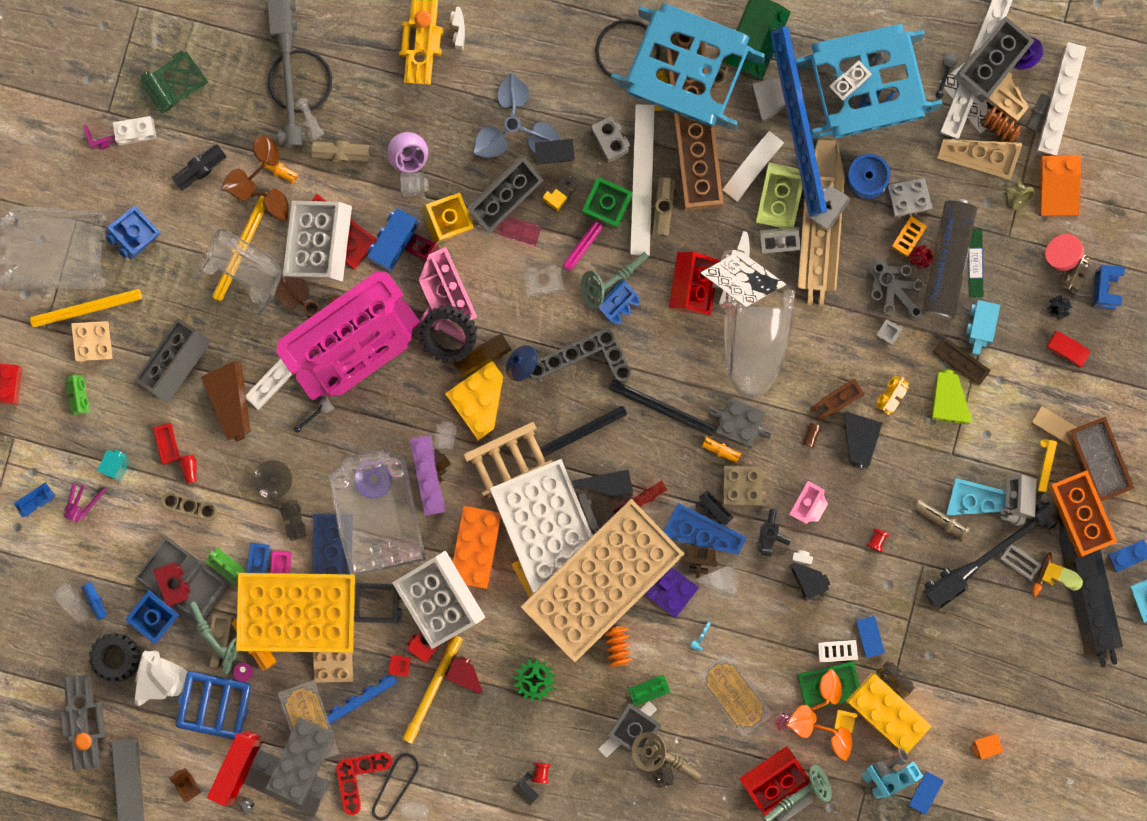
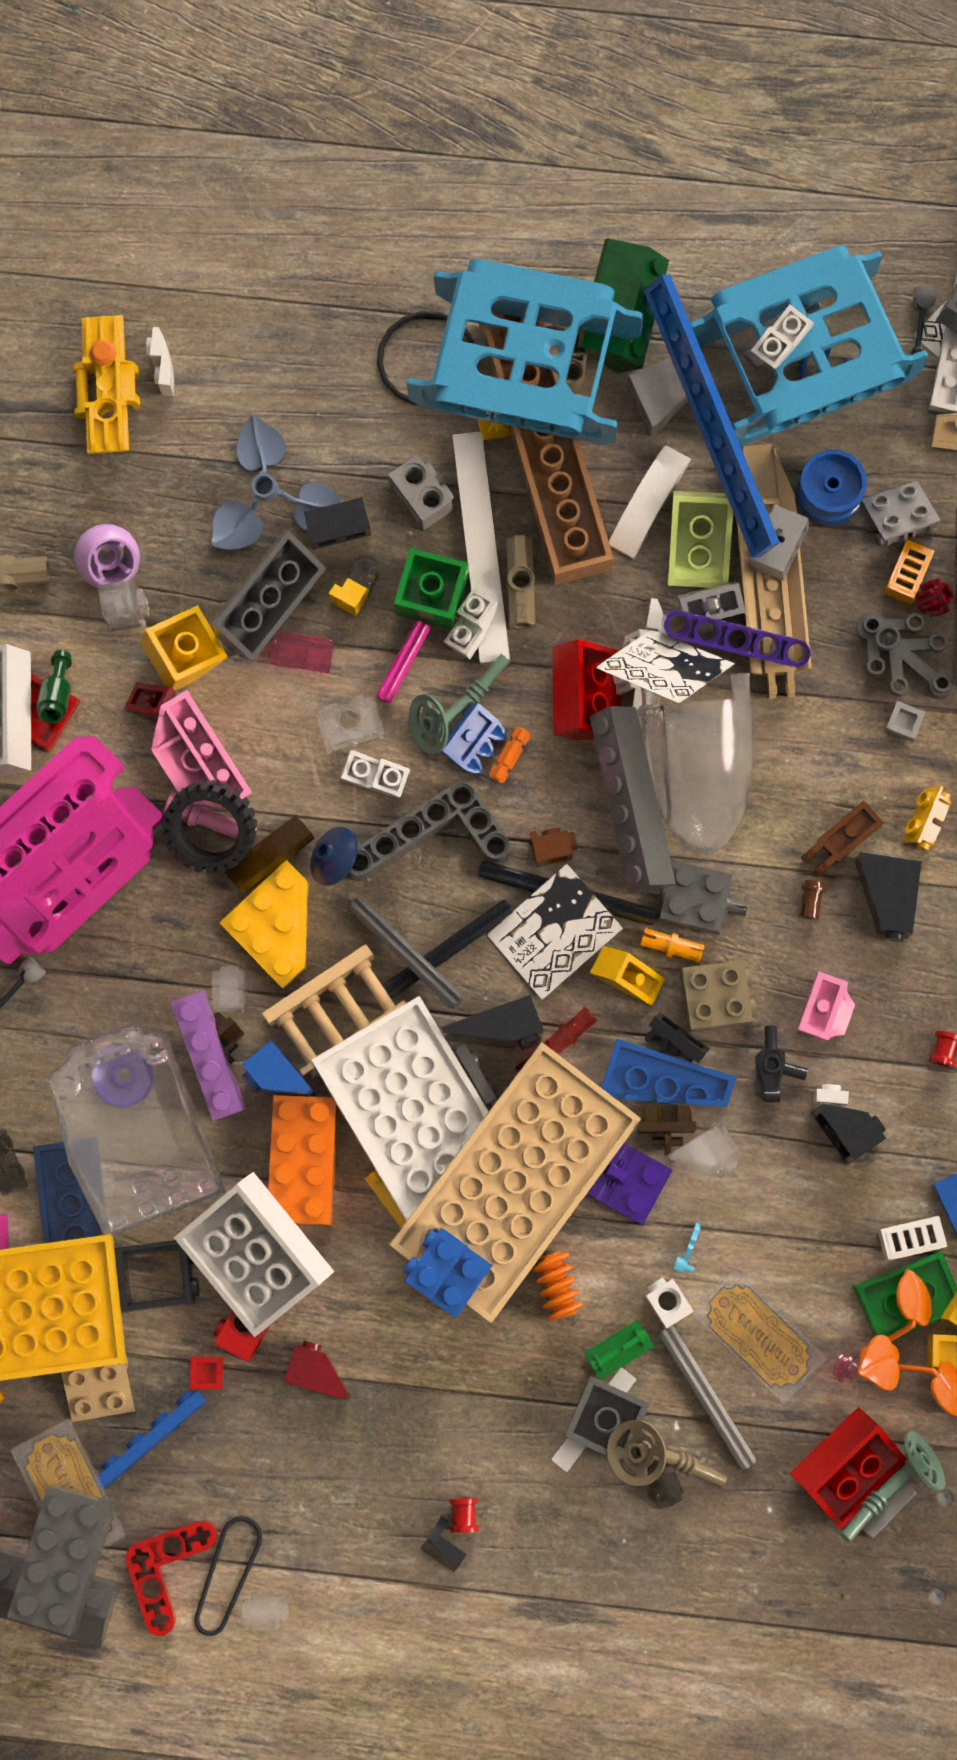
camera: 10 degrees left, 5 degrees down
(364, 233) = (55, 690): none -> dark green piece
(392, 240) = (102, 692): blue brick -> none
(414, 726) = (245, 1469): yellow piece -> none
(466, 493) = (274, 1074): none -> blue slope
(533, 689) = (430, 1377): green gear -> none
(552, 628) = (446, 1271): none -> blue plate
(554, 315) = (374, 774): none -> white slope
(556, 429) = (405, 952): none -> dark grey axle
(630, 229) = (475, 618): none -> white slope
(639, 315) = (509, 755): none -> orange axle
(650, 430) = (554, 931): none -> sticker
(657, 377) = (552, 846): none -> reddish brown brick
(685, 674) = (680, 1309): none -> white brick
(690, 464) = (627, 975): none -> yellow slope
(697, 726) = (707, 1397): none -> light grey axle
(710, 357) = (632, 800): none -> dark grey brick
(798, 272) = (750, 642): none -> dark purple beam

